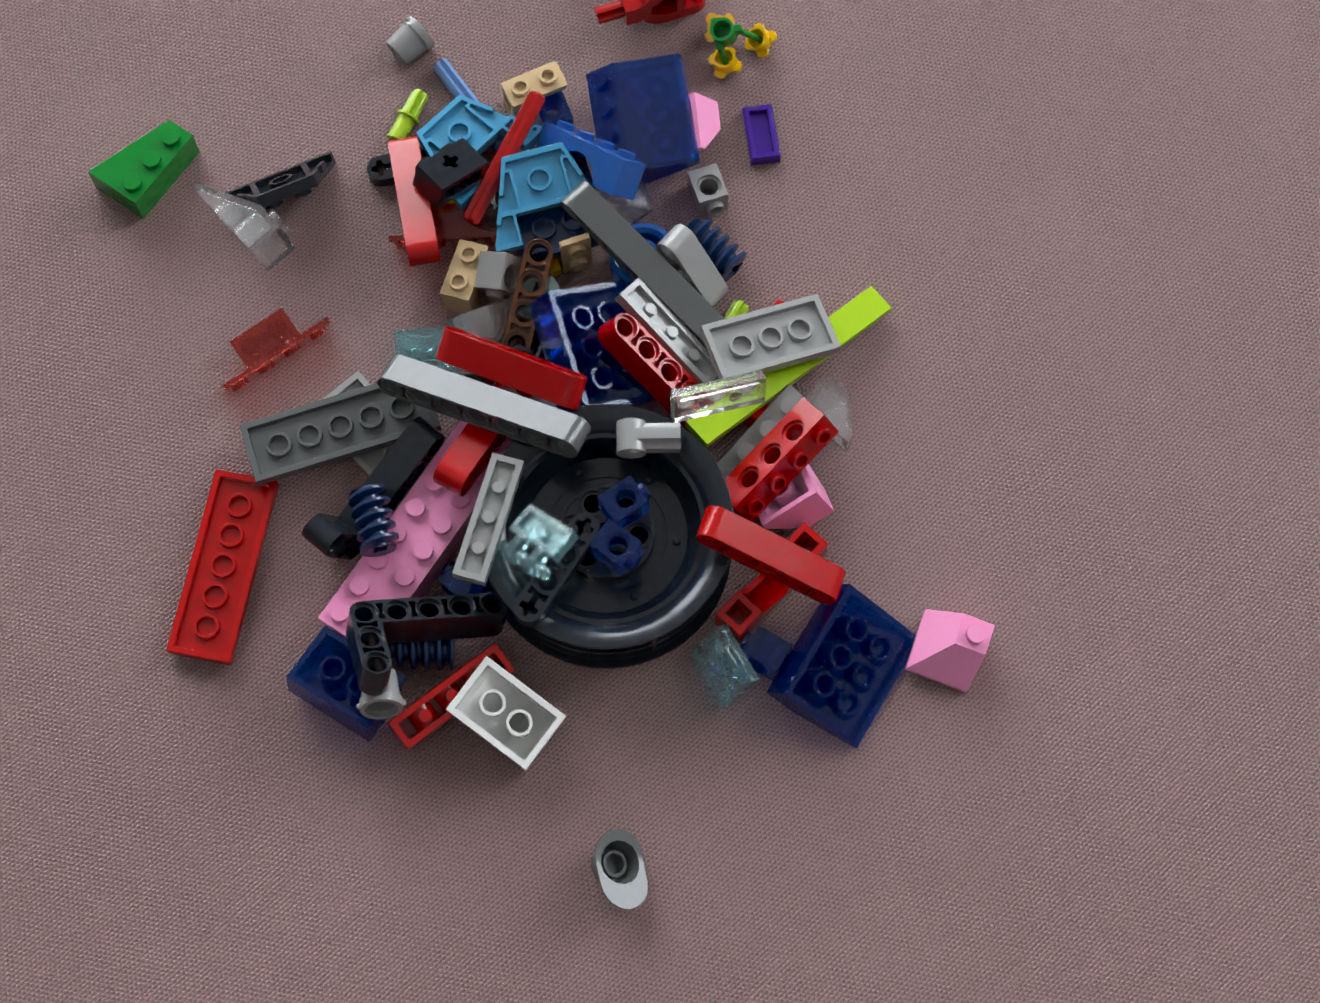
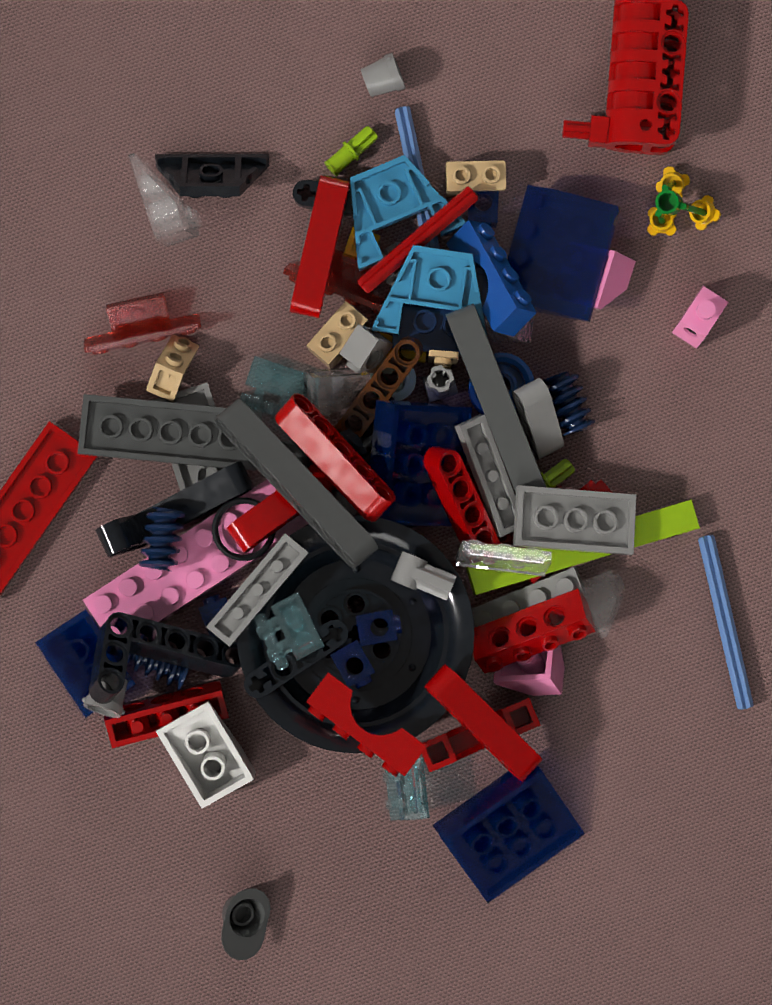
camera: 20 degrees right, 15 degrees up
(146, 168) = (97, 102): green wedge -> none
(316, 370) = (171, 367): none -> tan bracket
(420, 482) = (221, 547): none -> black tyre
(449, 172) = (376, 241): black brick -> none
(582, 271) = (439, 383): none -> light grey piece
(694, 611) = (333, 701): none -> red arch
(708, 179) = (589, 330): light grey brick -> none
(761, 134) = (662, 305): dark purple tile -> none
(765, 651) = (446, 790): clear blue brick -> none
(801, 118) = (700, 317): none -> bright pink torso
(949, 648) = (603, 855): bright pink slope -> none
(958, 385) = (725, 622): none -> medium blue axle

